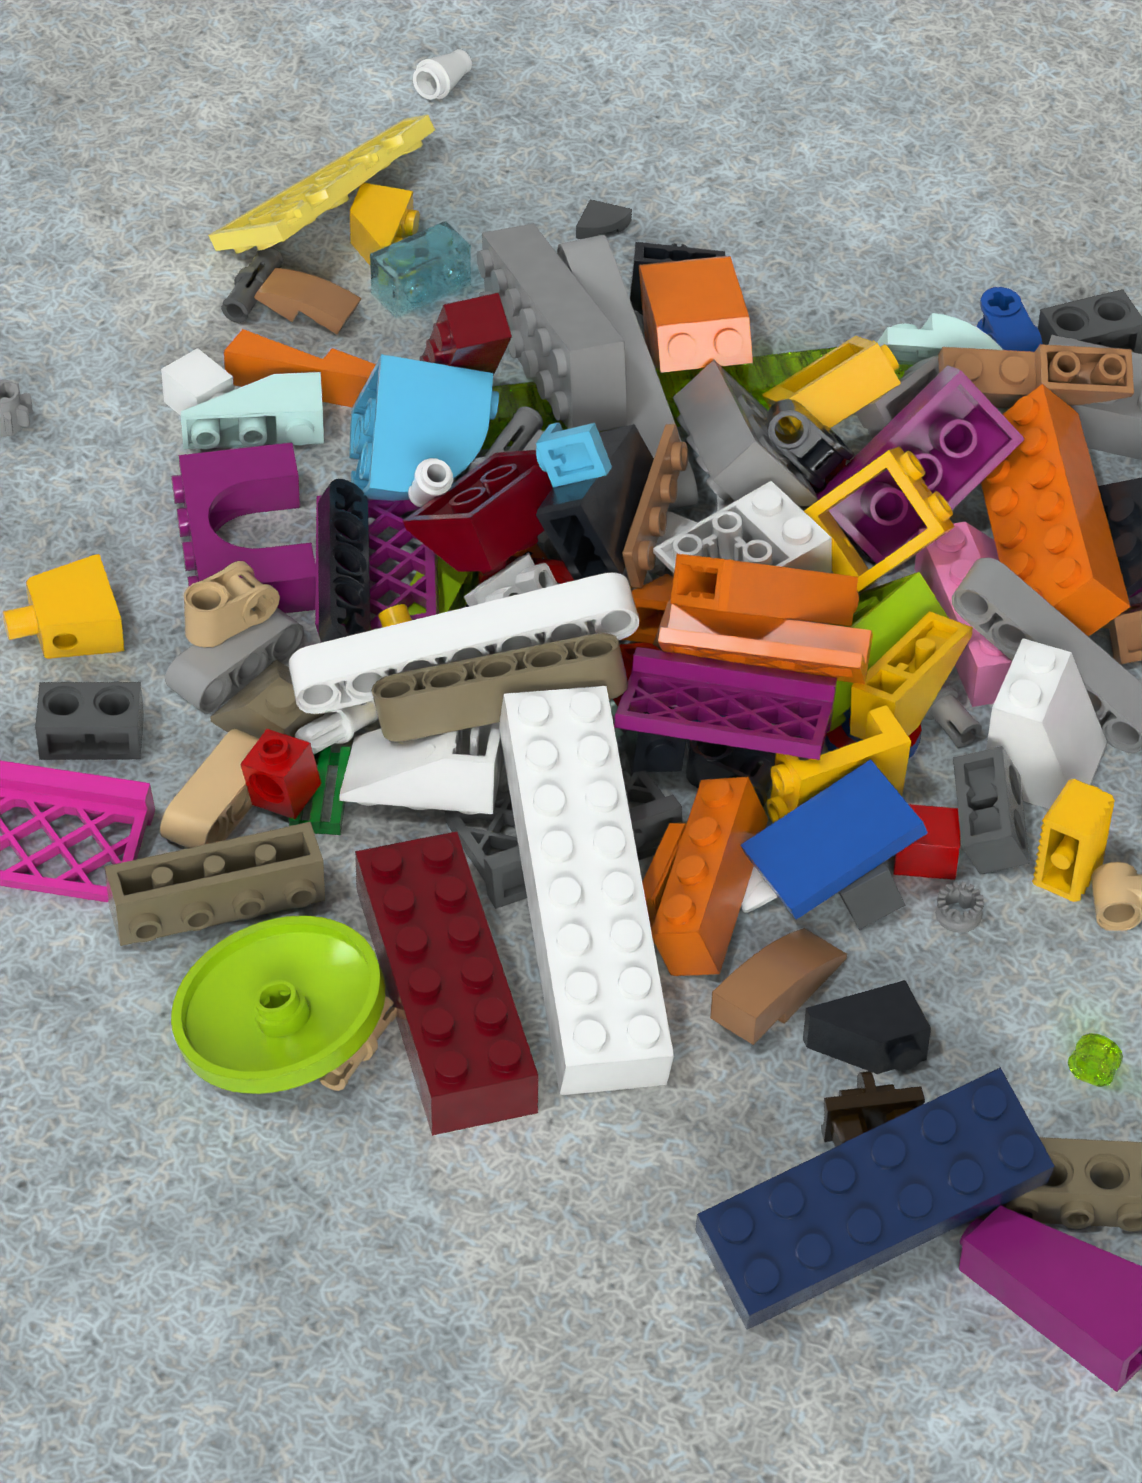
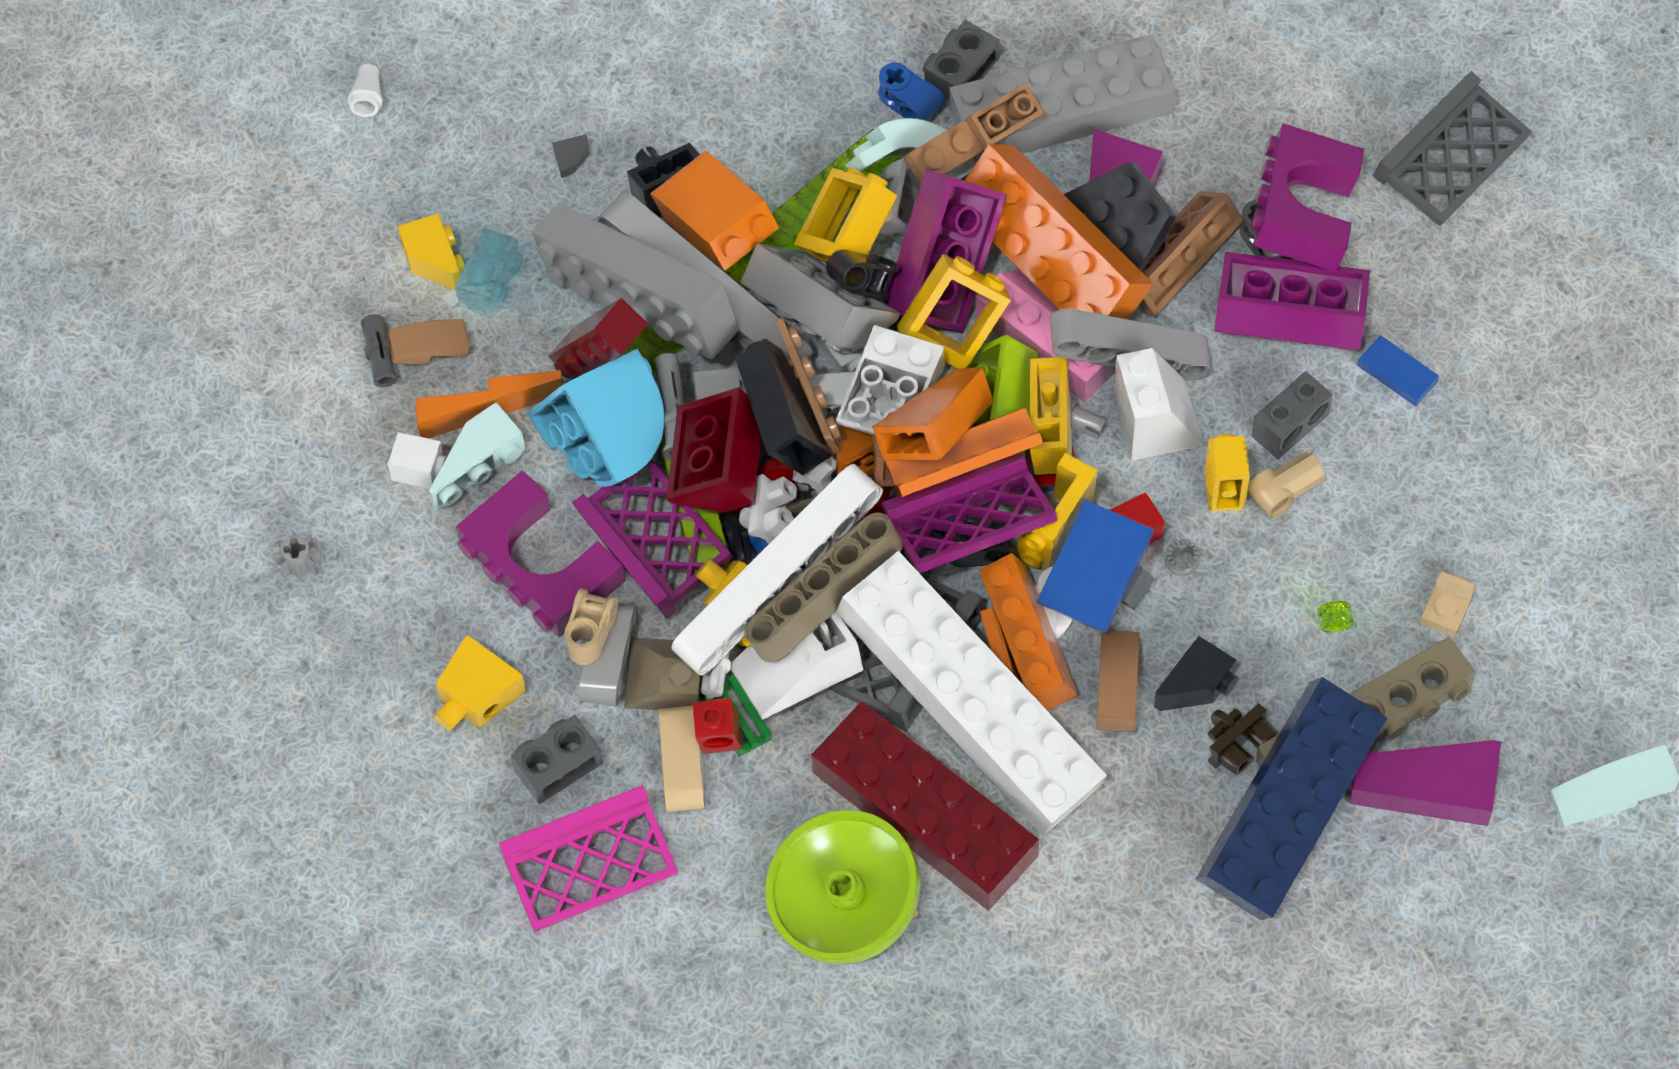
camera: 30 degrees left, 15 degrees up
(215, 883) = (737, 829): dark tan brick -> none
(321, 191) = (369, 263): light yellow wing -> none
(351, 552) = (680, 594): black beam -> none
(432, 479) = (661, 456): white pin -> none
(572, 454) = (760, 395): medium azure bracket -> none
(991, 810) = (1162, 481): dark grey brick -> none

